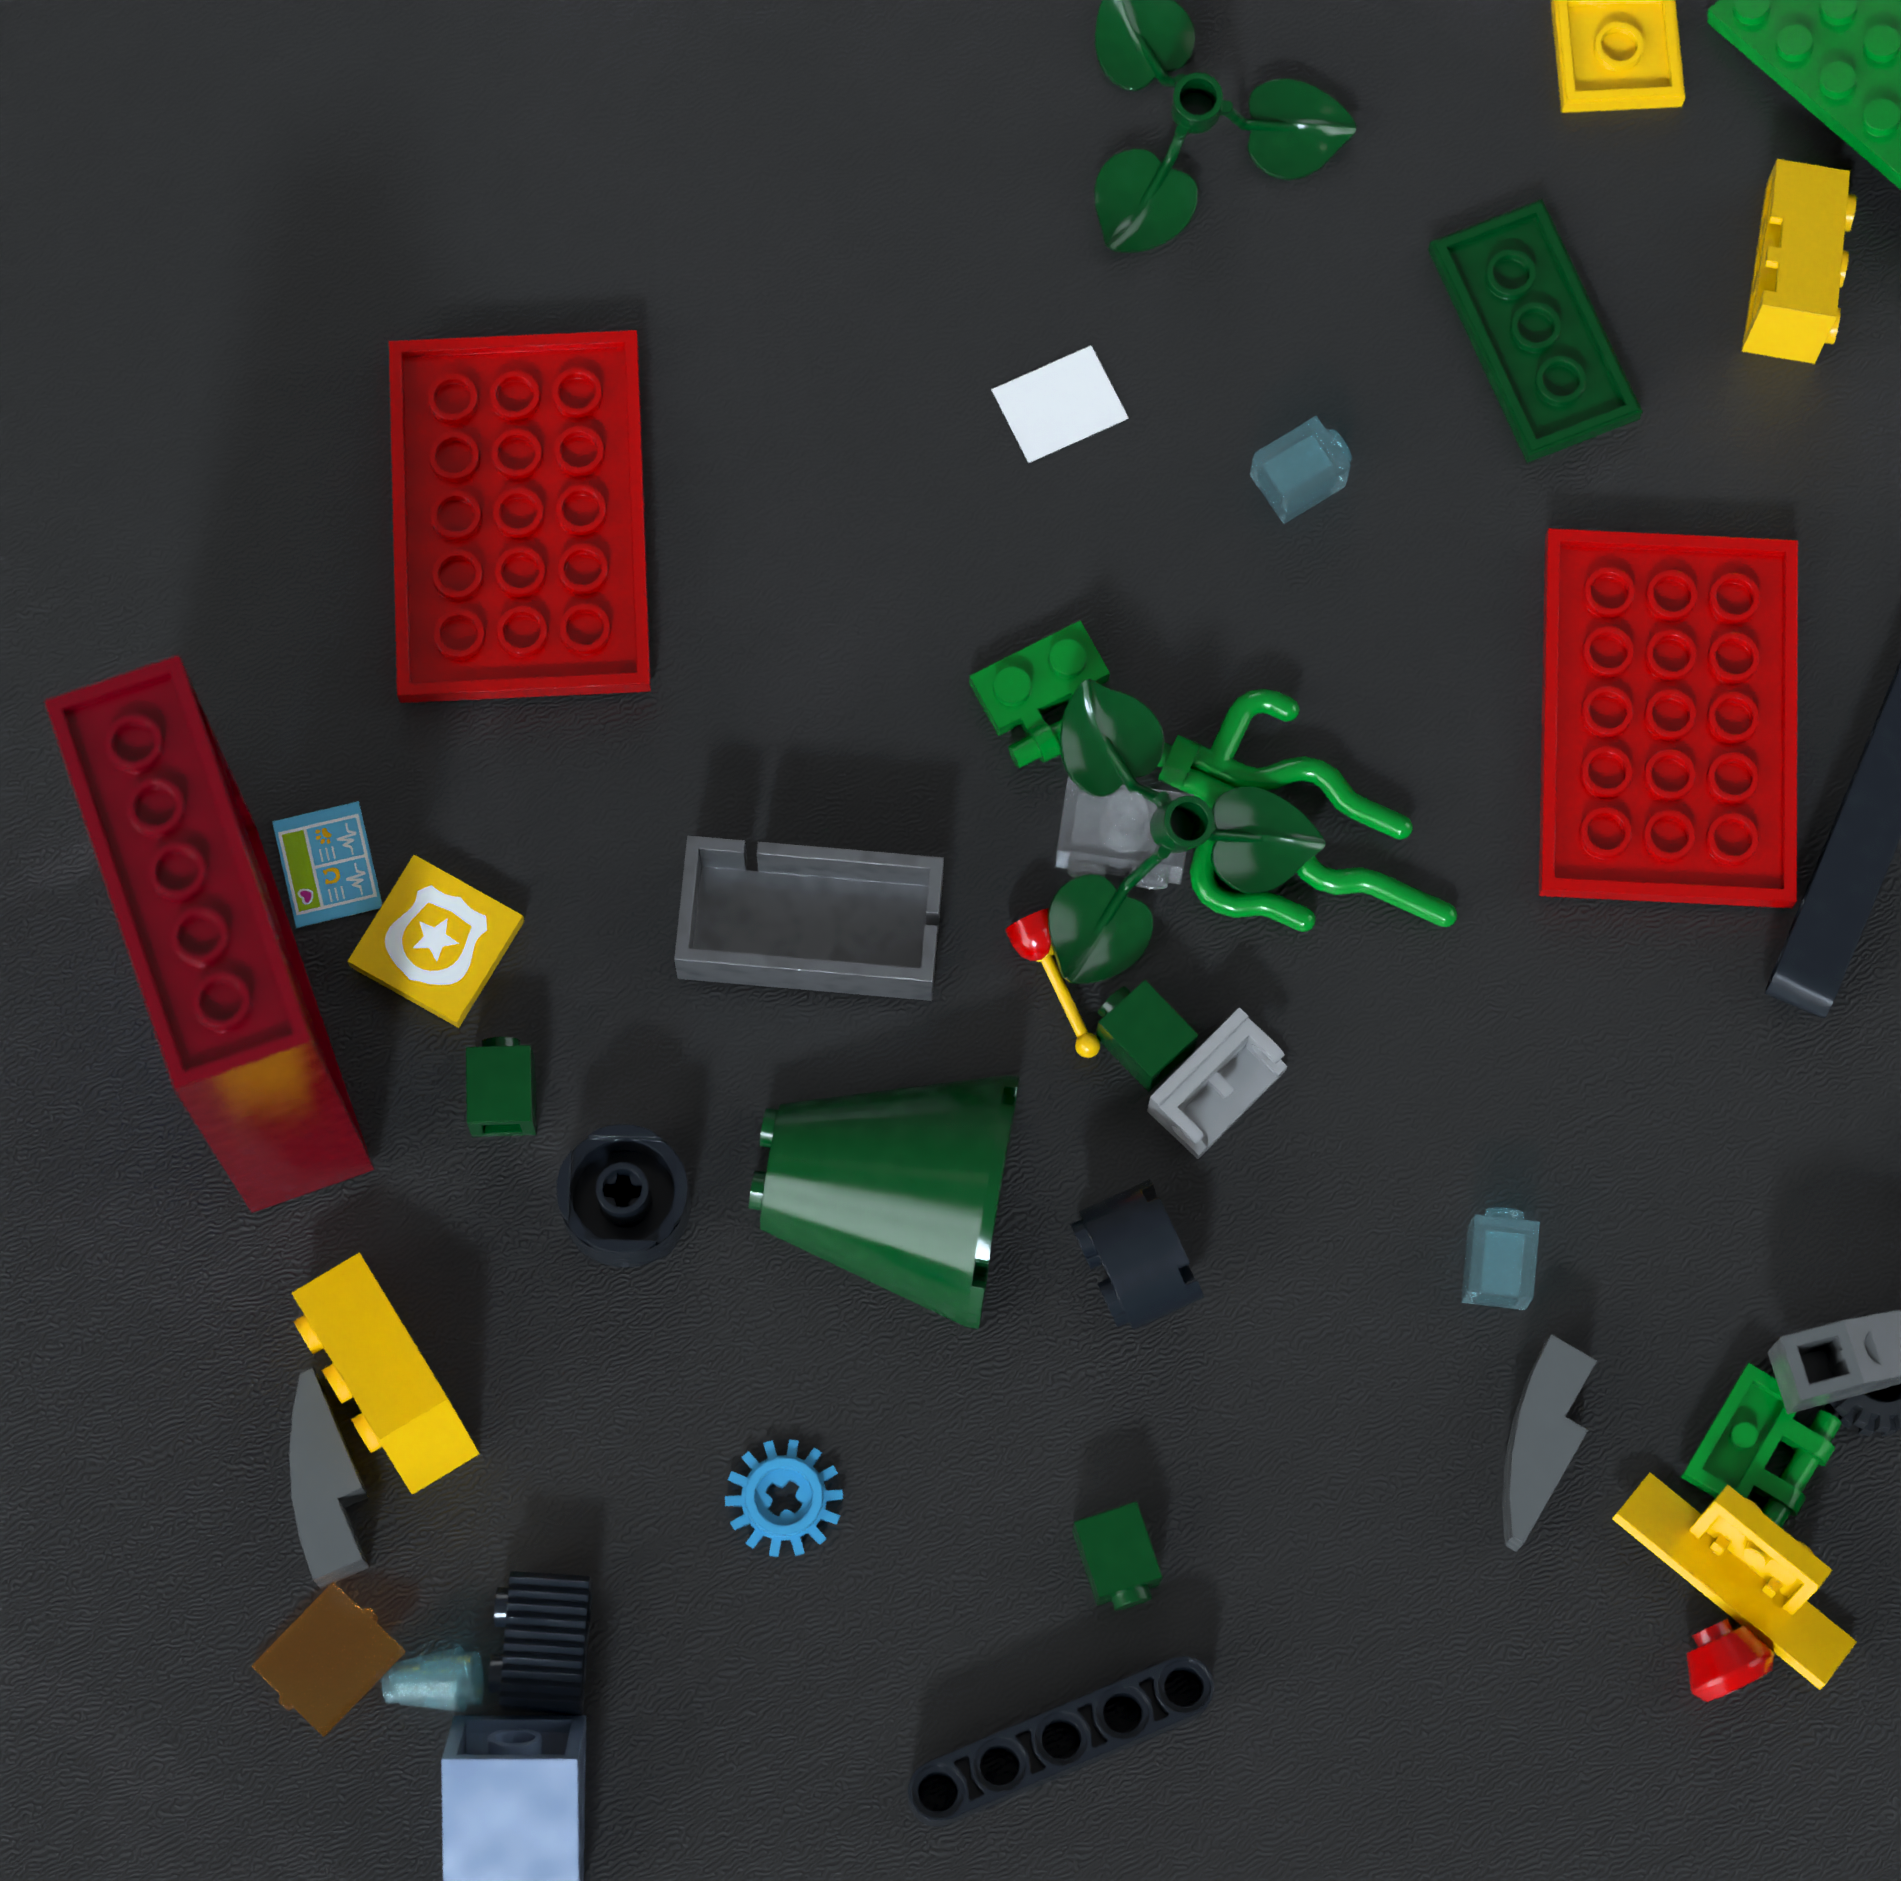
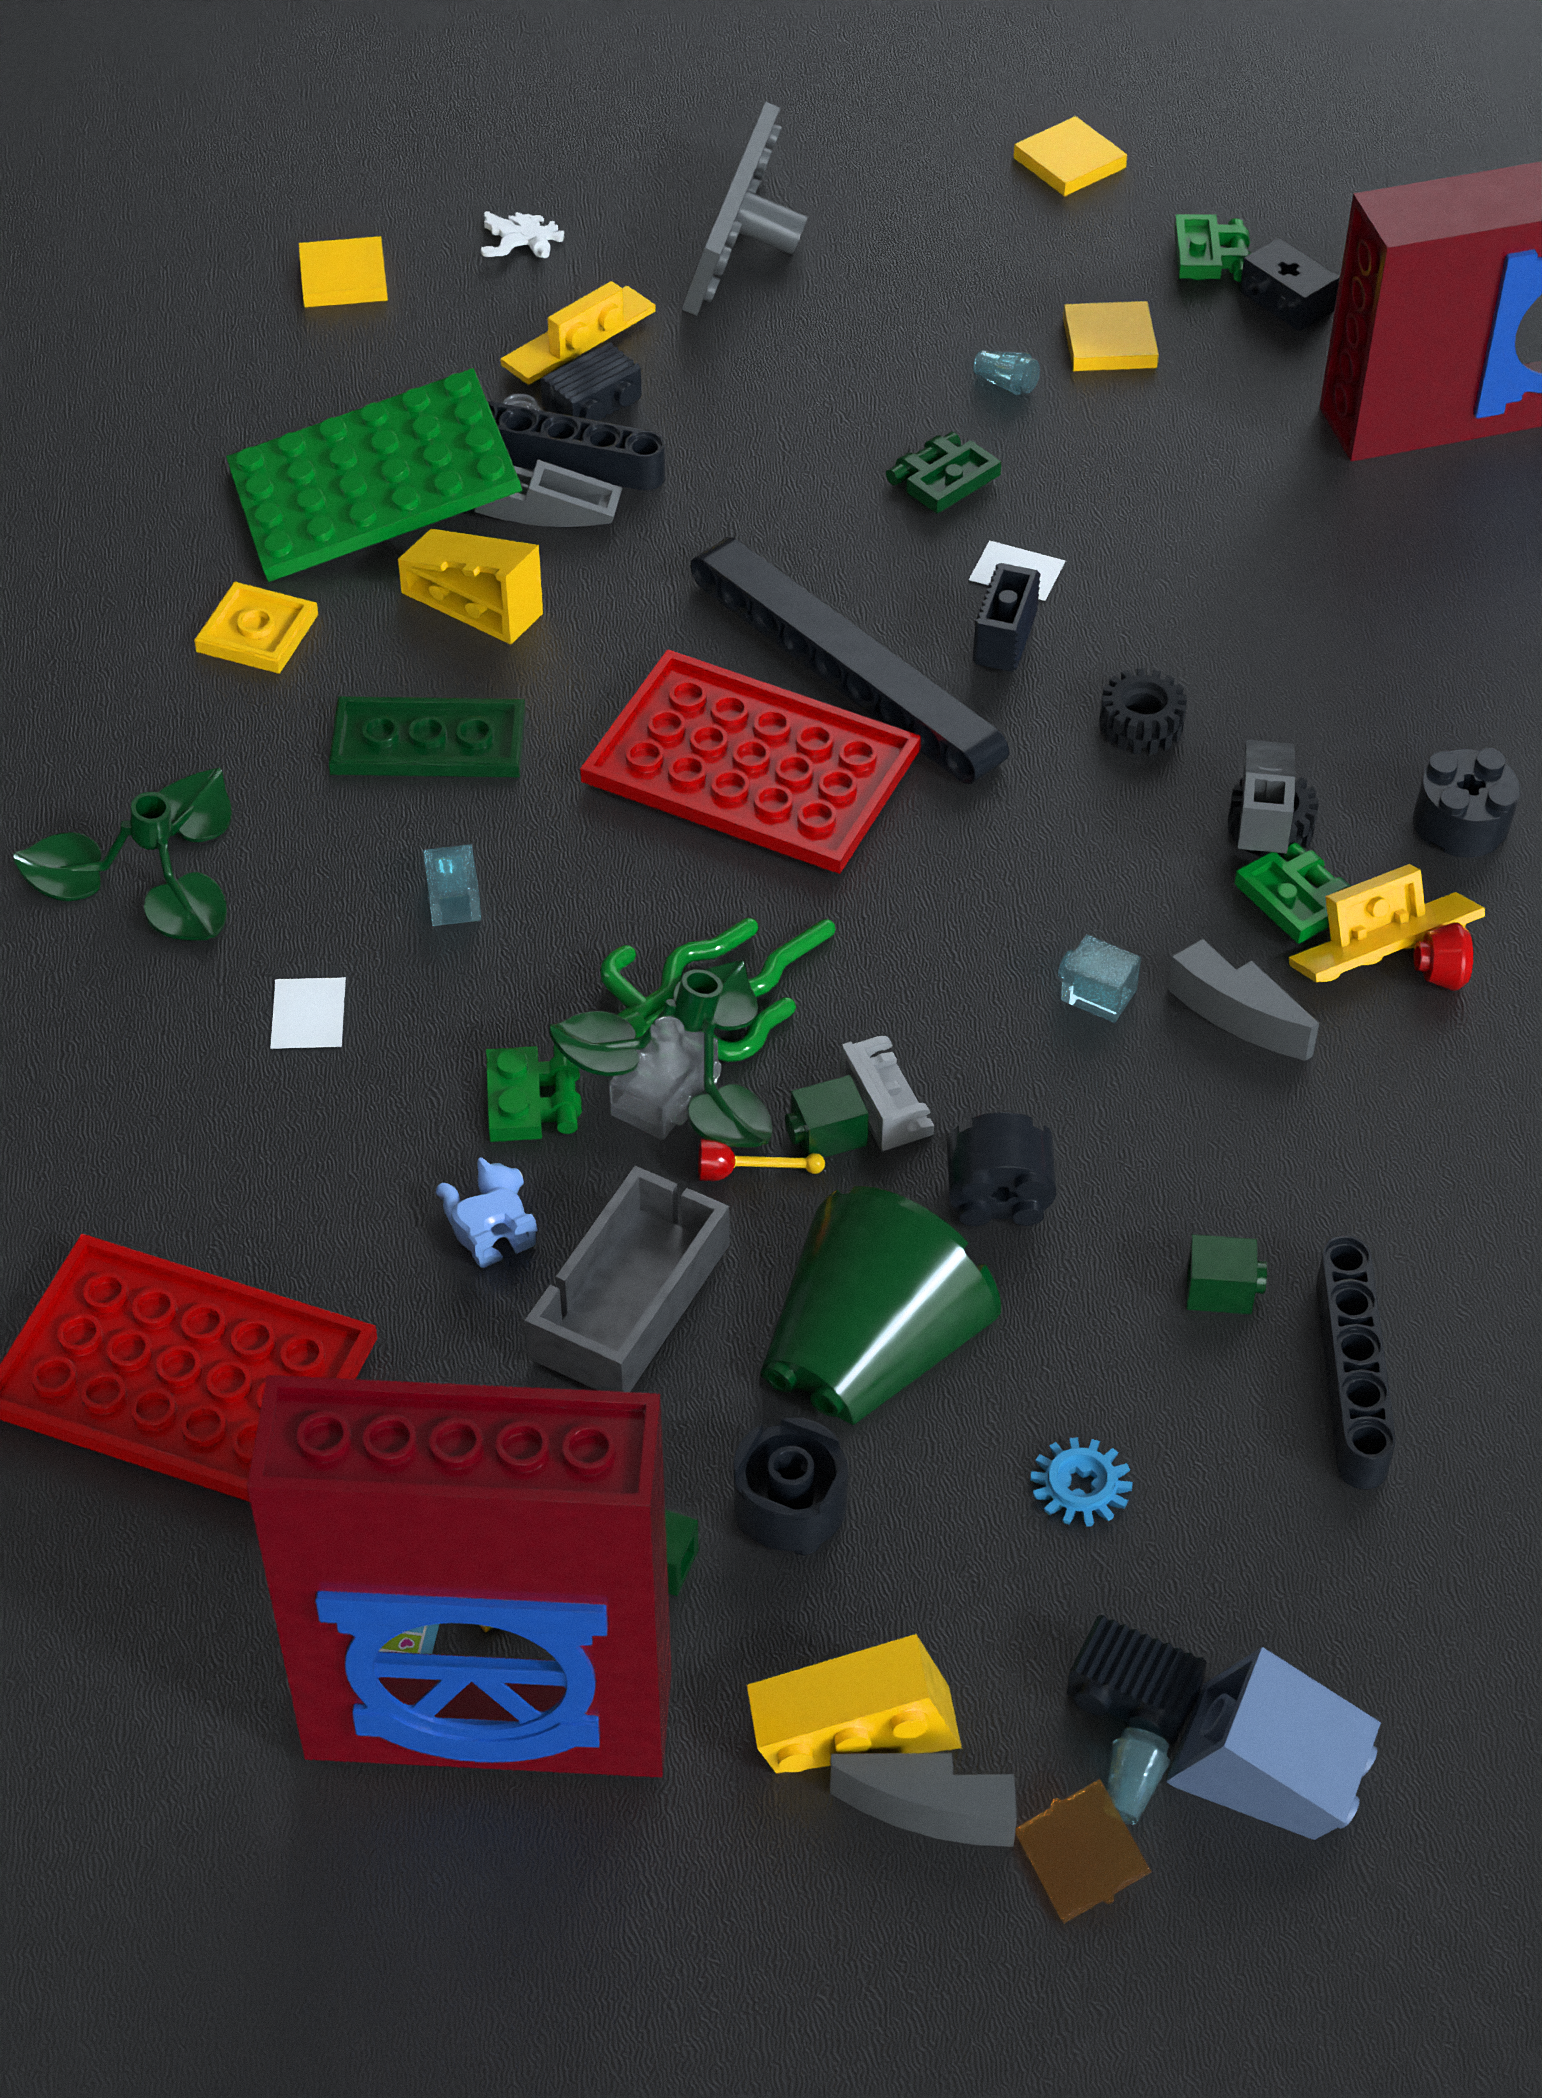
camera: 65 degrees left, 25 degrees down
(849, 732) = (490, 1216): none -> light blue animal

